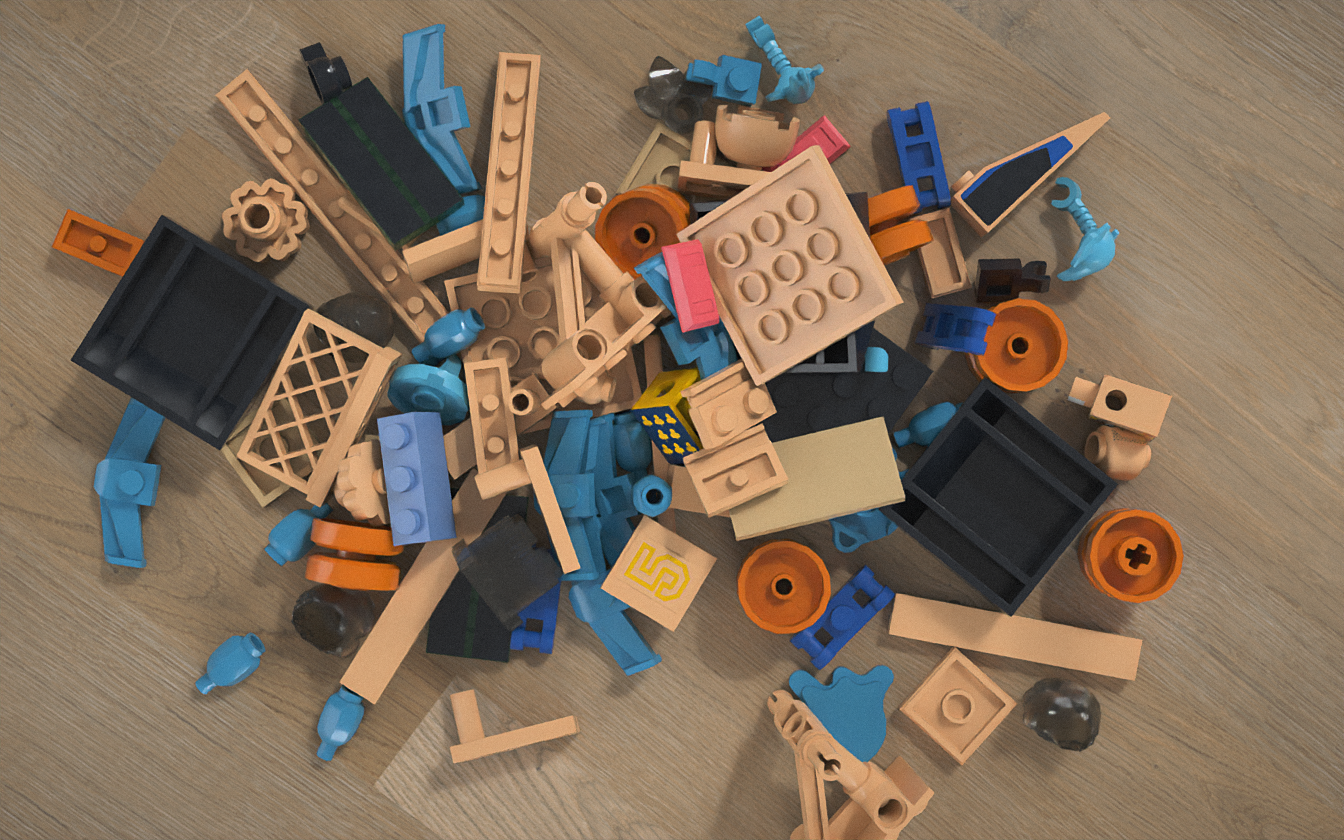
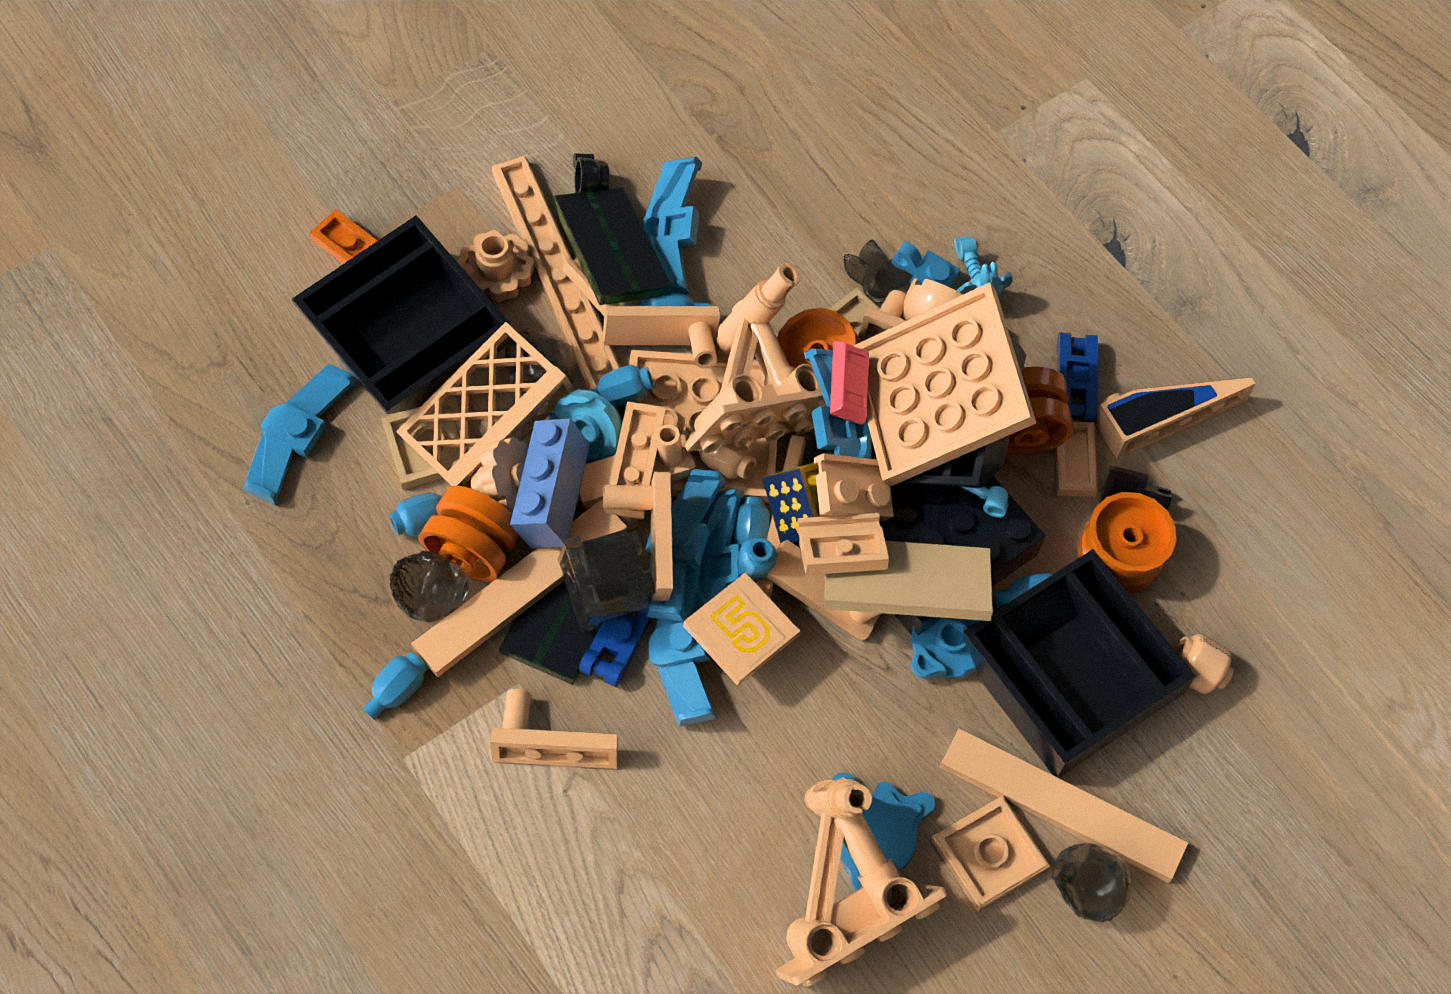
camera: 10 degrees right, 25 degrees down
(232, 662) = (318, 604): dark azure plant -> none
(509, 173) = (716, 282): light nougat tile -> none
(805, 596) = (853, 681): orange wheel -> none
(843, 617) = (900, 736): blue plate -> none
(955, 328) = (1075, 503): blue plate -> none
(1096, 245) = (1218, 481): medium azure piece -> none
(1141, 407) = (1219, 616): light nougat torso -> none
(1155, 556) = (1193, 754): orange wheel -> none

